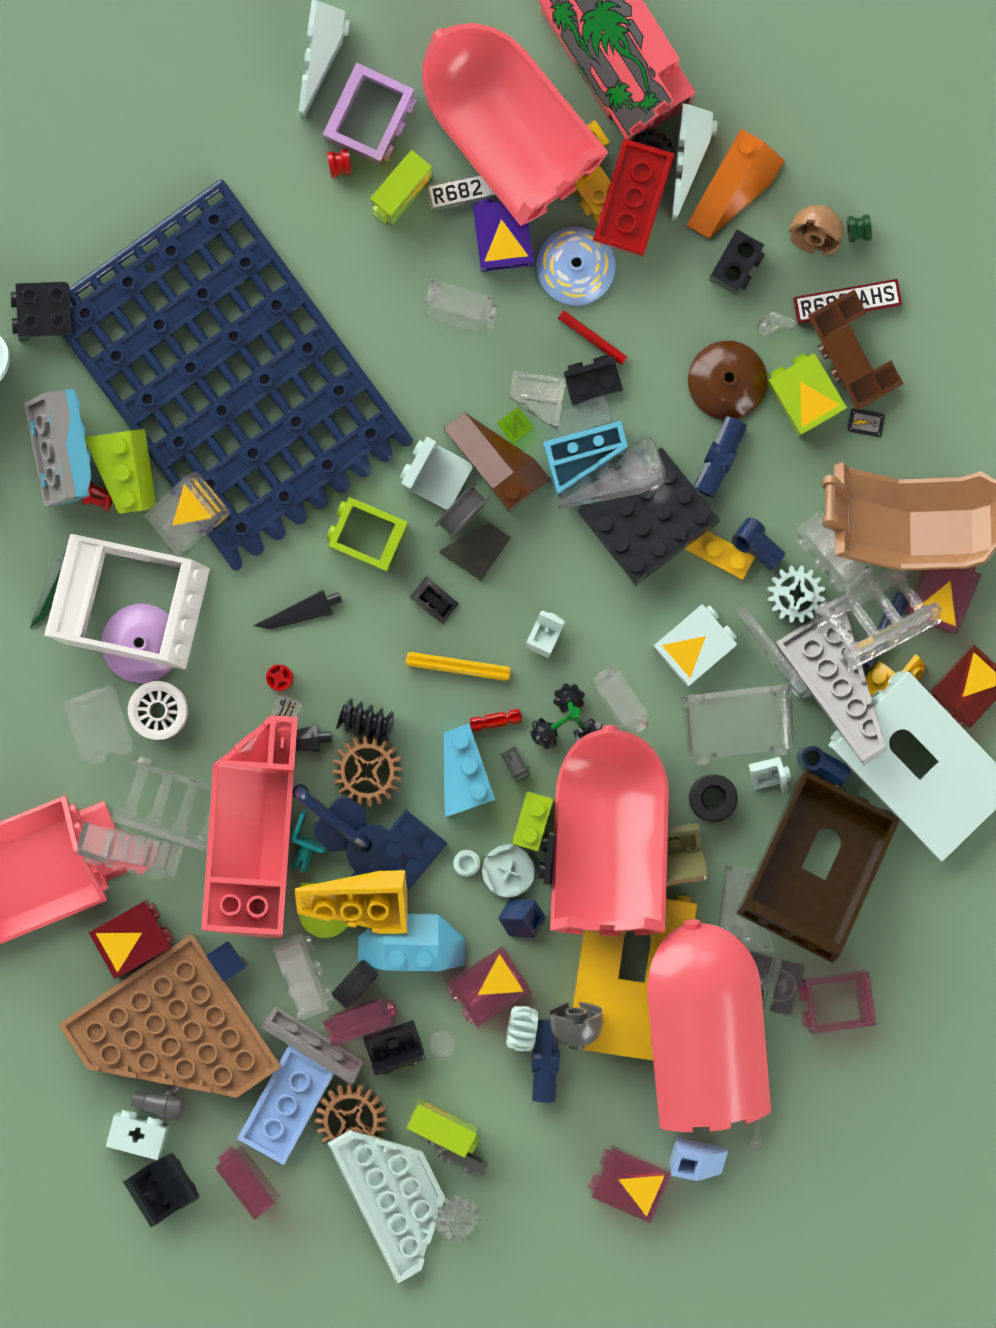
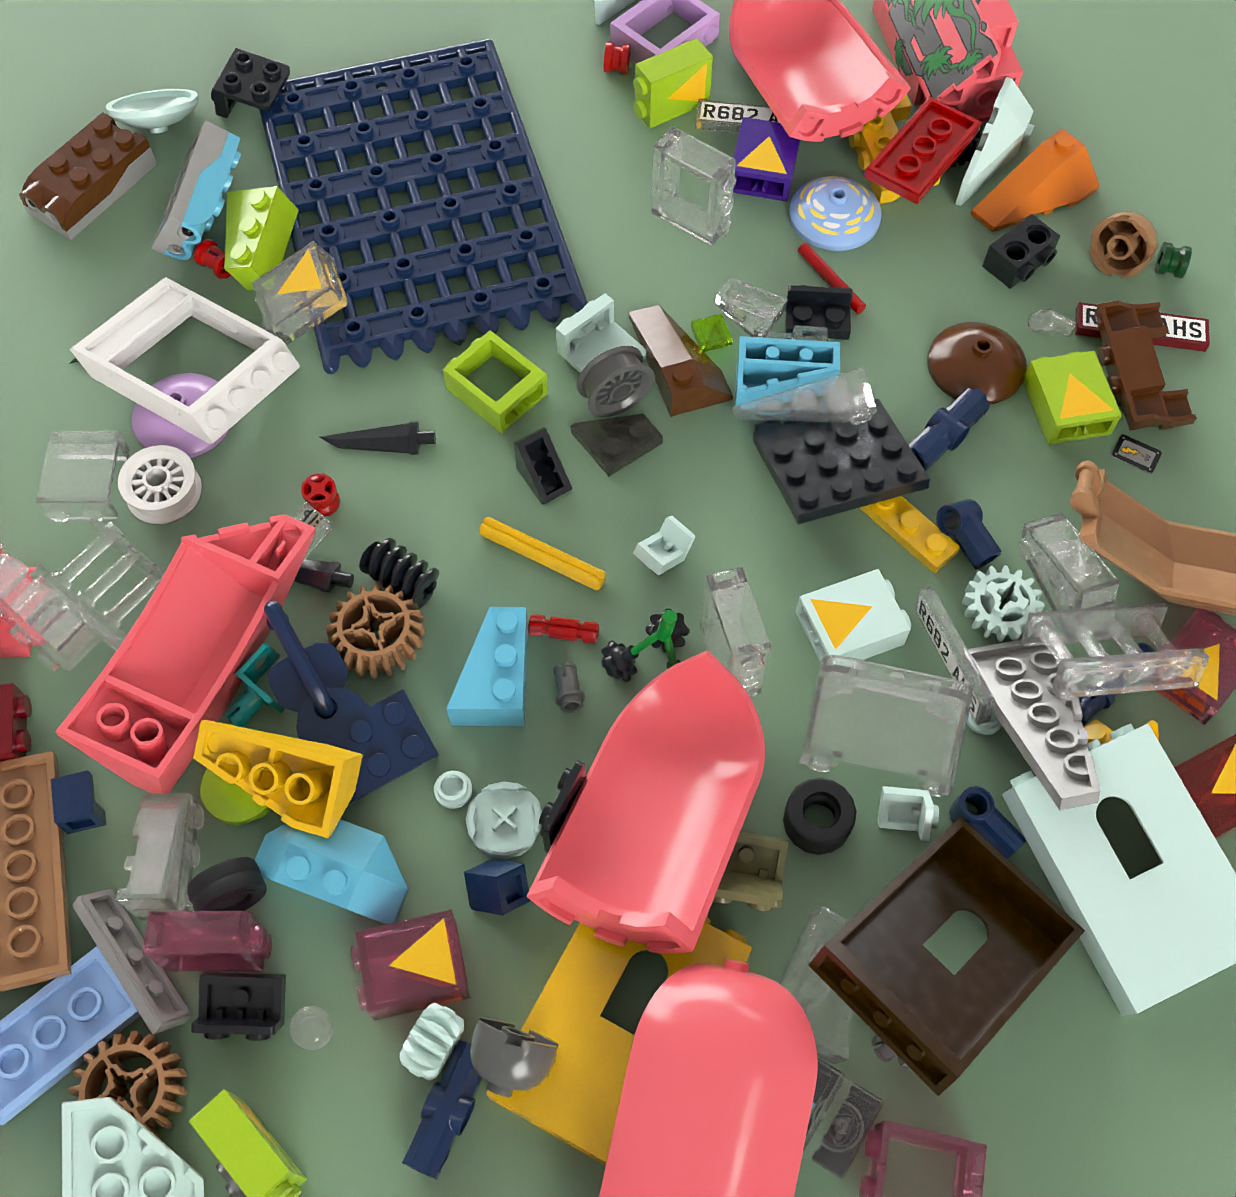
camera: 20 degrees right, 25 degrees down
(532, 821) = (561, 741): lime brick -> none

